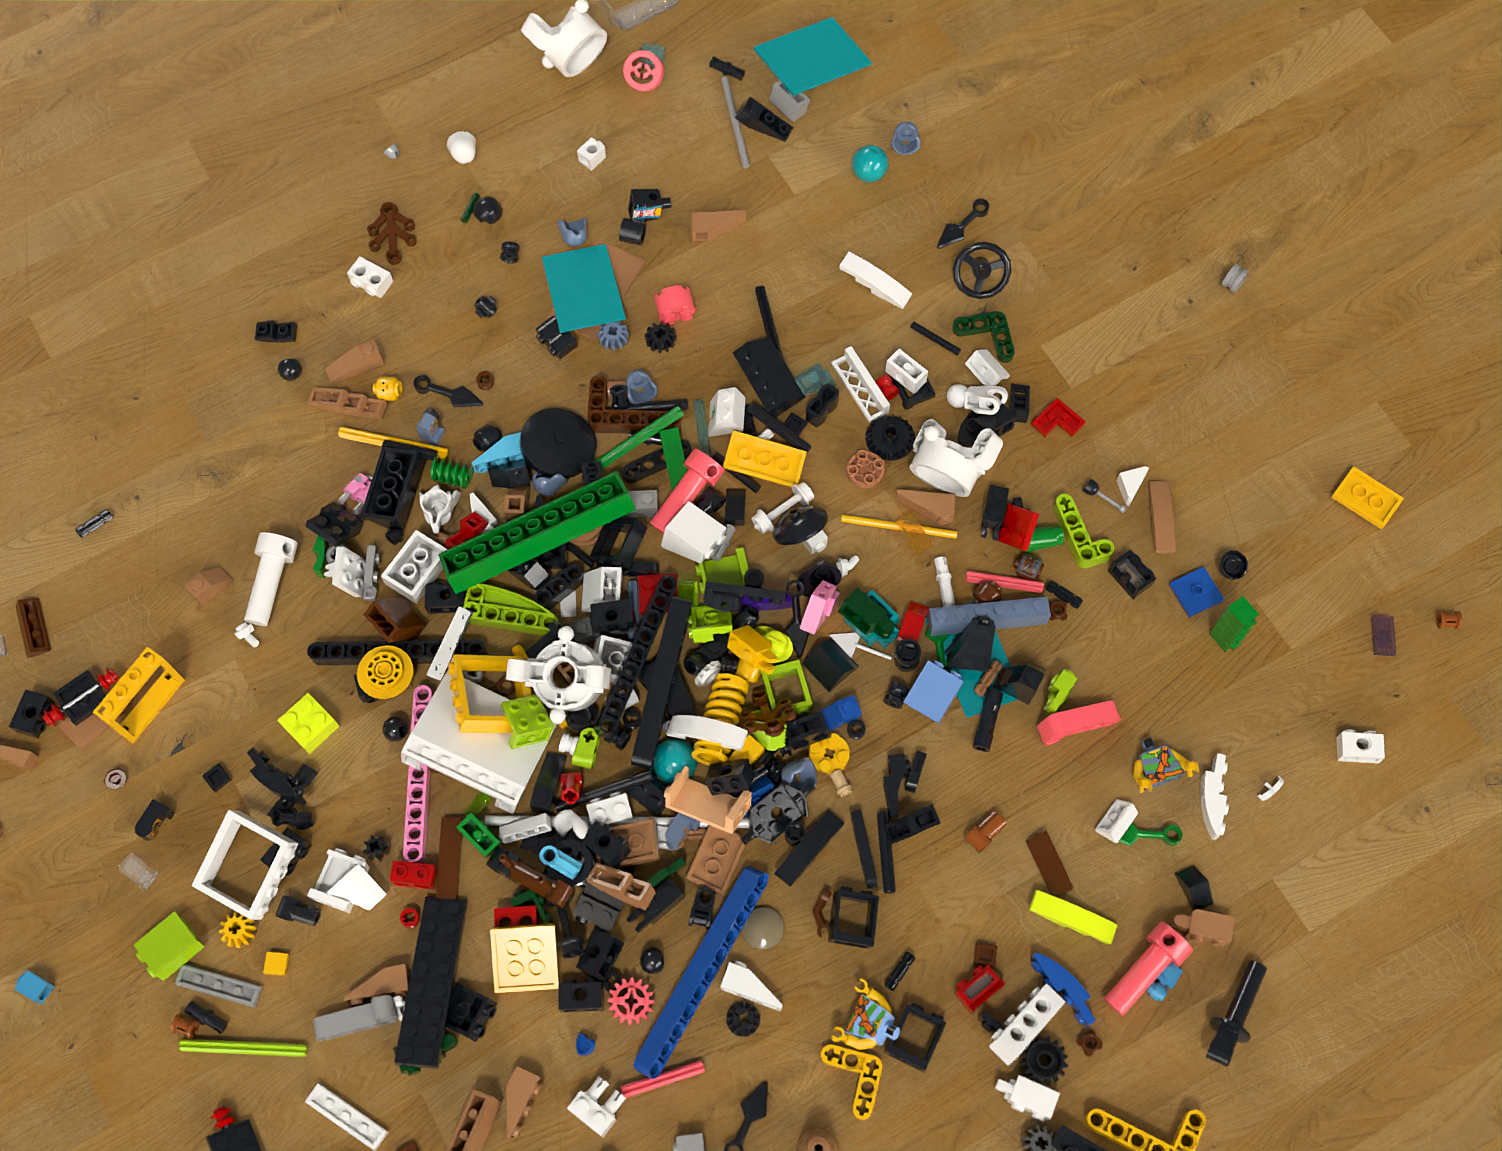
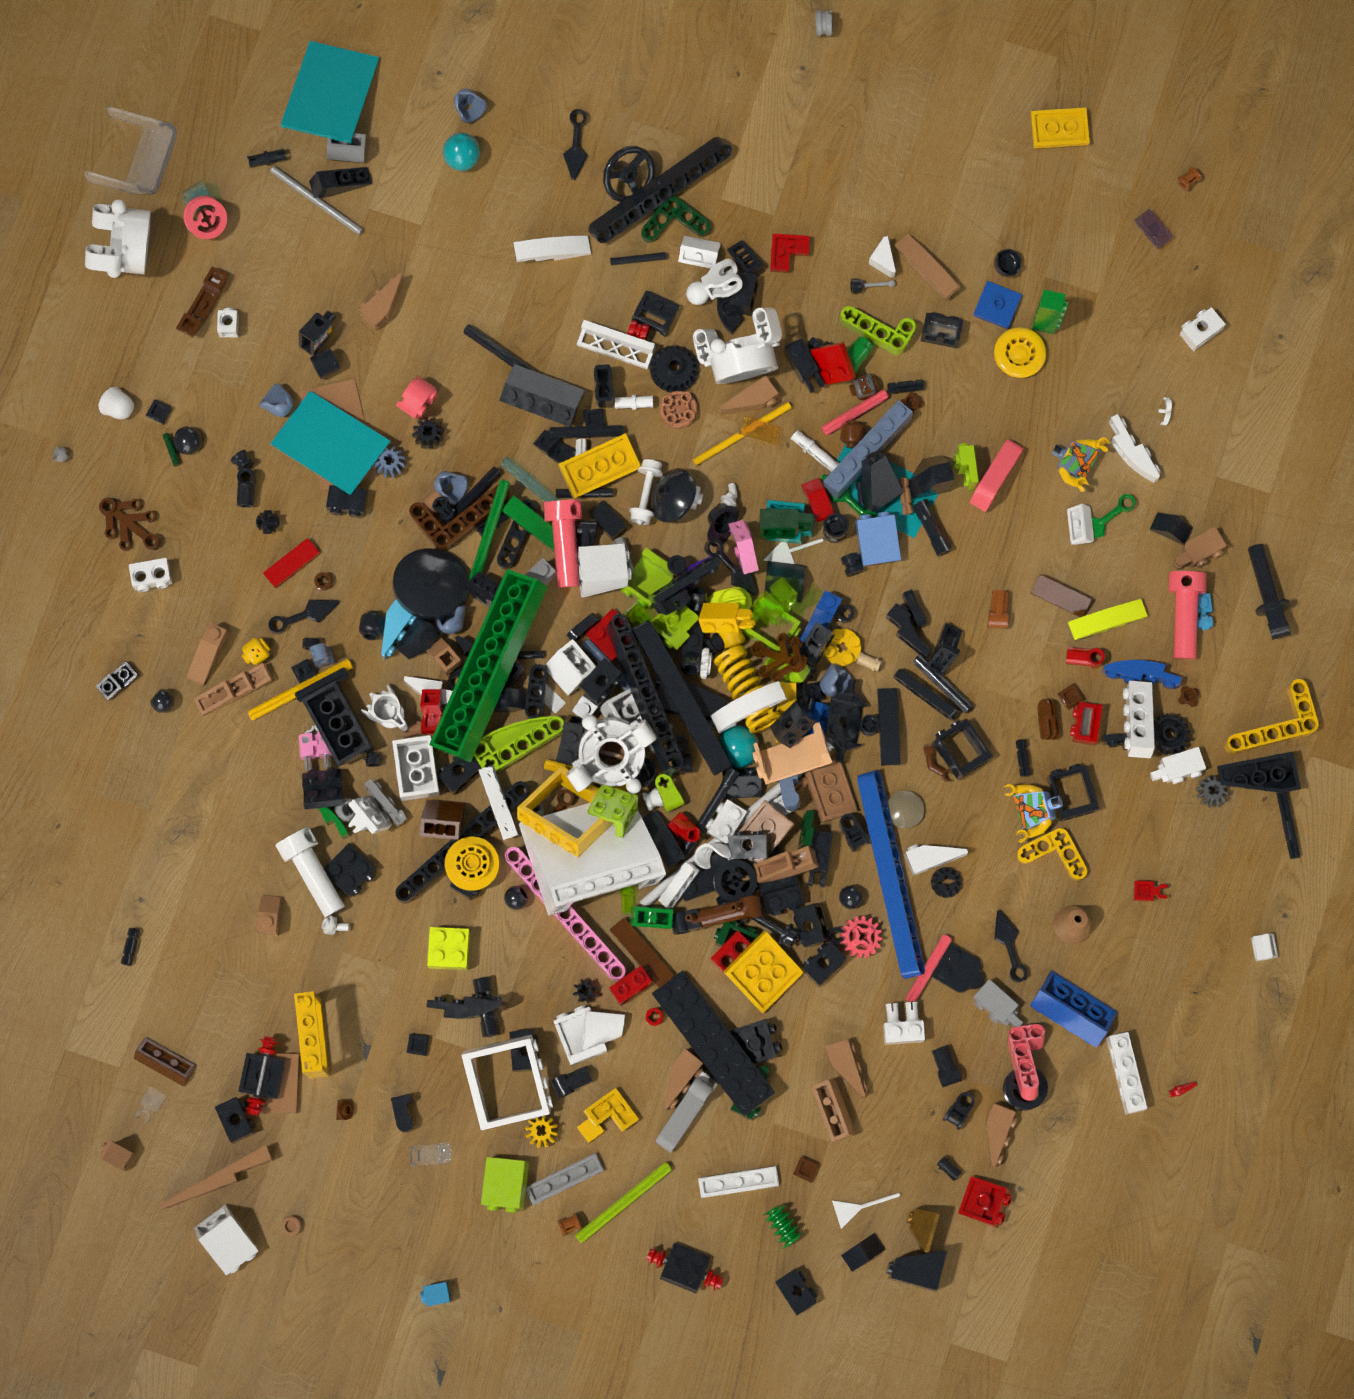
camera: 45 degrees left, 10 degrees up
(206, 1017) = (578, 1205): black pin -> none
(292, 817) = (505, 1022): black connector -> none
(297, 603) = (350, 870): none -> black plate
(309, 960) = (614, 1106): none -> yellow plate
(408, 431) = (303, 671): none -> black tile
(451, 474) = (370, 675): green piece -> none
(475, 350) = (291, 563): none -> red tile
(486, 176) = (158, 411): none -> black tile
(493, 272) = (245, 490): none -> black piece
(562, 863) = (733, 884): medium azure piece -> none
(584, 1045) = (856, 993): blue piece -> none
(585, 130) = (203, 303): none -> reddish brown slope
(635, 532) = (538, 629): black window -> none
(686, 1103) = (958, 970): none -> black plate
(726, 412) = (536, 453): white slope -> none
(802, 672) = (771, 606): none -> clear neon green piece
(814, 379) = (580, 370): clear light blue slope -> none
(835, 436) = (634, 402): none -> white pin
(906, 371) = (645, 306): white brick -> none
(948, 957) = (1048, 720): none -> reddish brown arm
(1004, 306) = (660, 189): none -> black beam
(1023, 930) = (1081, 657): none -> red piece
(1183, 643) = (1019, 352): none -> yellow wheel

